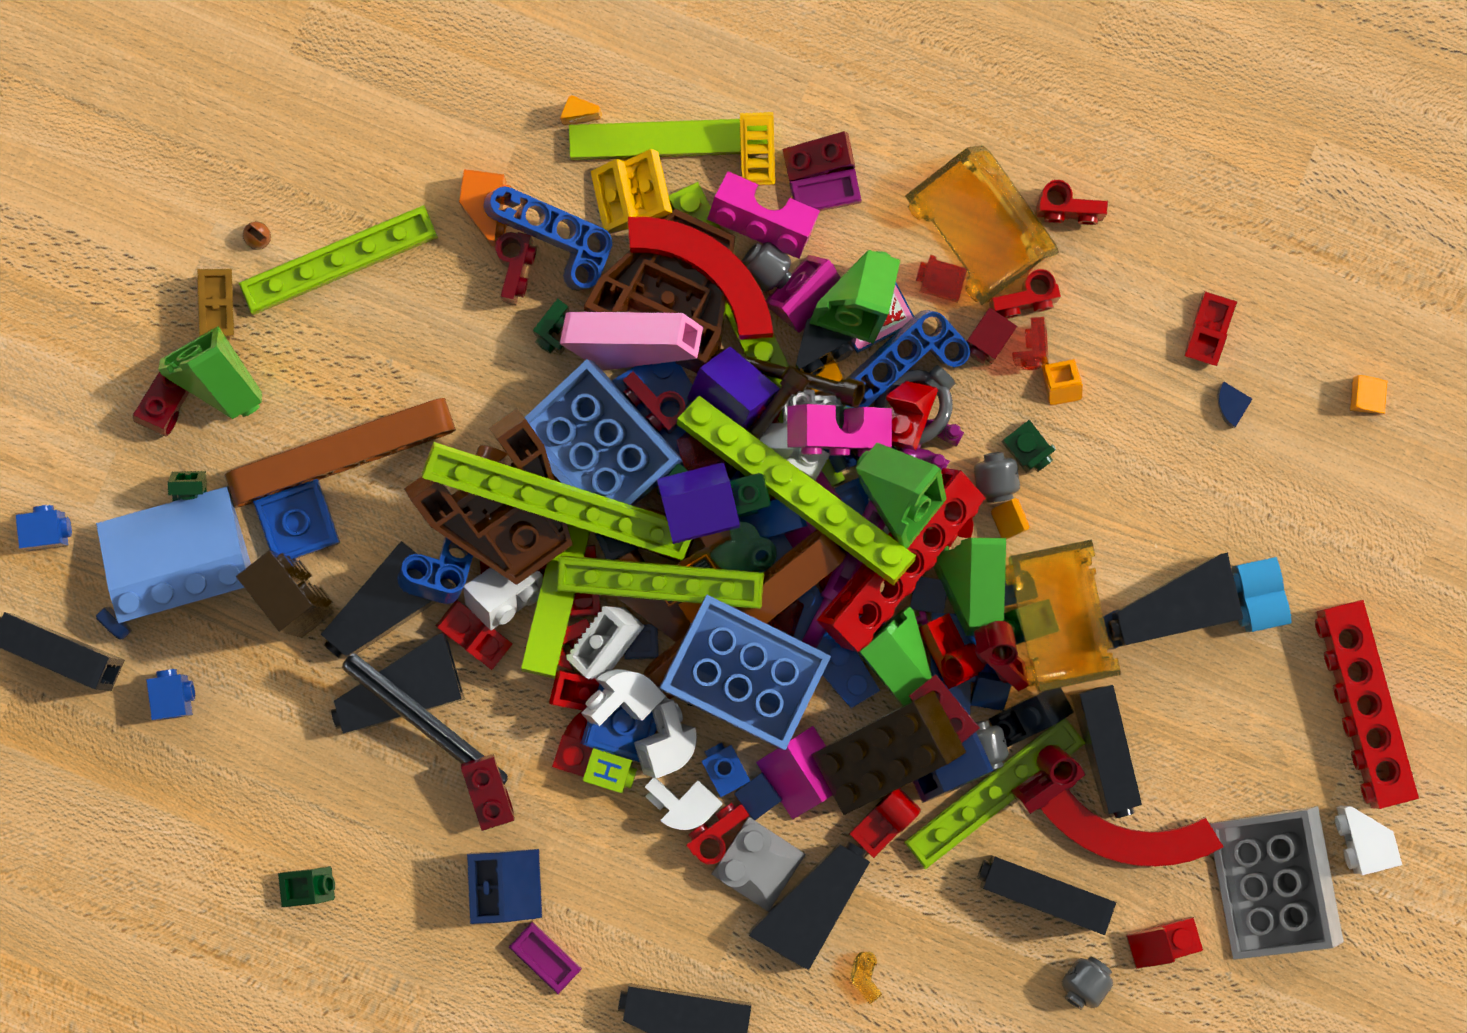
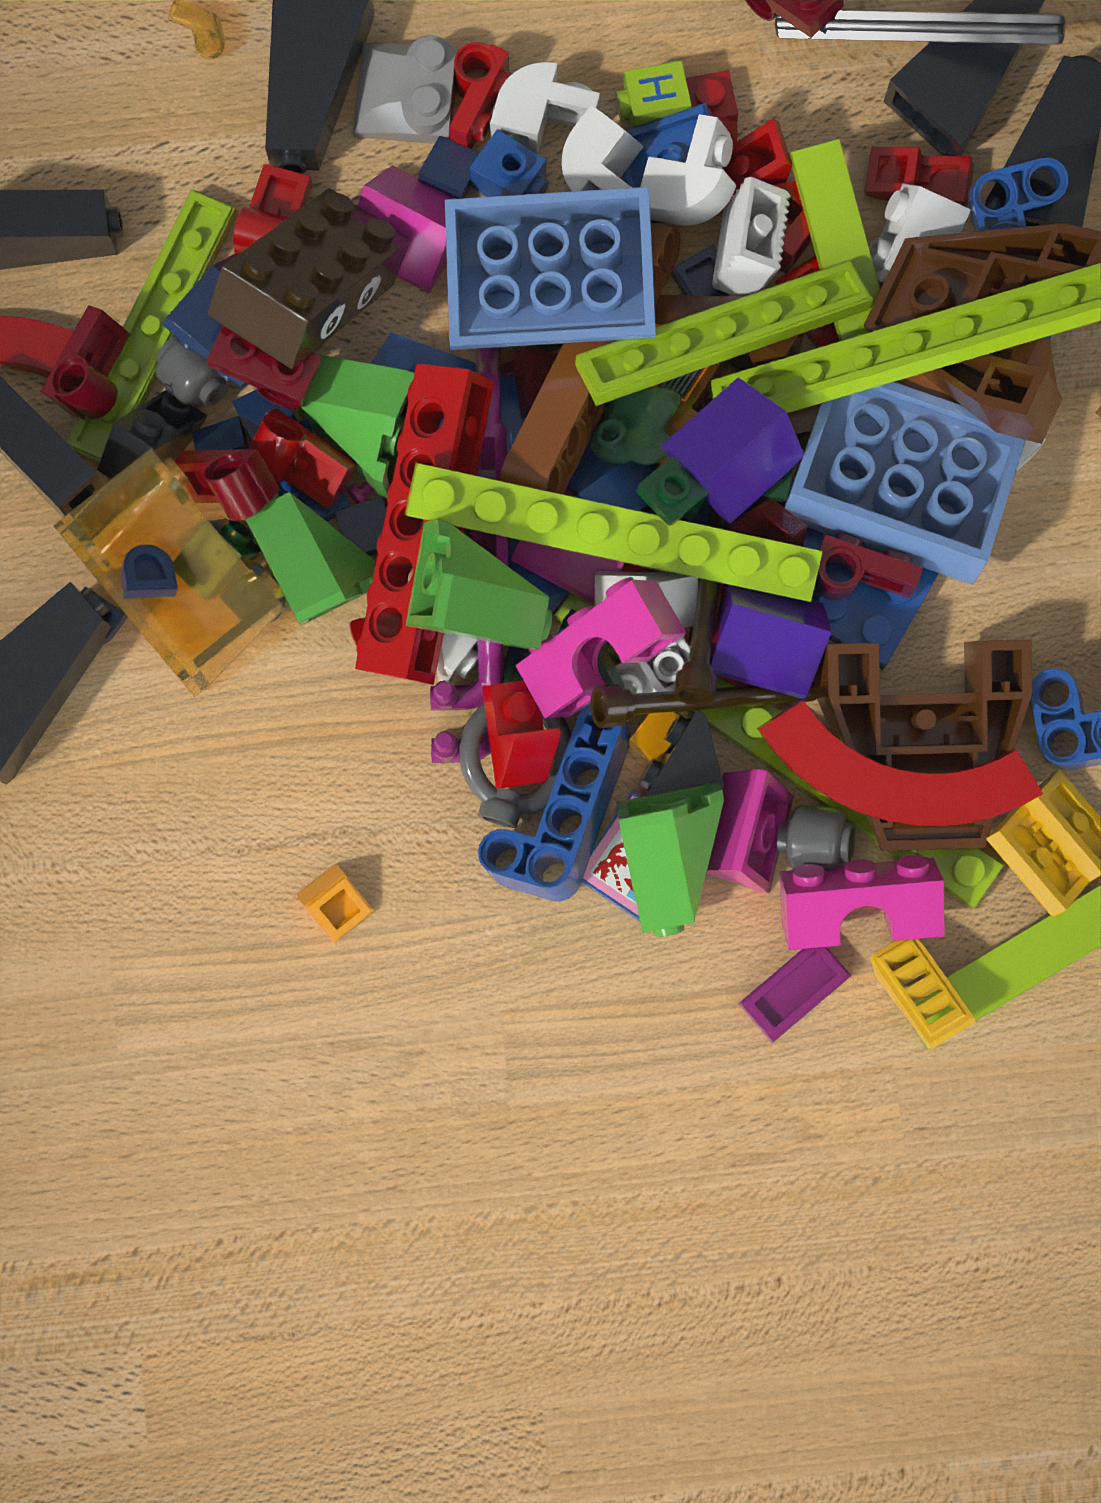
camera: 155 degrees right, 5 degrees down
(551, 322) = (1055, 615): dark green bracket -> none
(631, 338) = (945, 625): bright pink slope -> none
(819, 157) = (830, 1029): dark red plate -> none
(941, 279) = (572, 953): clear red bracket -> none
(983, 222) = (552, 1061): clear yellow windscreen -> none
(990, 336) = (464, 904): dark red brick -> none
(997, 477) = (355, 721): dark grey head -> none
(1010, 519) = (309, 679): light orange slope -> none
(1011, 304) = (458, 964): red plate -> none
(1029, 447) = (332, 787): dark green bracket -> none
(1037, 340) = (395, 934): clear red bracket -> none
(1076, 627) = (148, 573): none -> dark blue tile
(1086, 211) = (422, 1152): red plate -> none
(1210, 328) = (167, 1084): red slope -> none
(1232, 403) = (86, 995): dark blue tile -> none

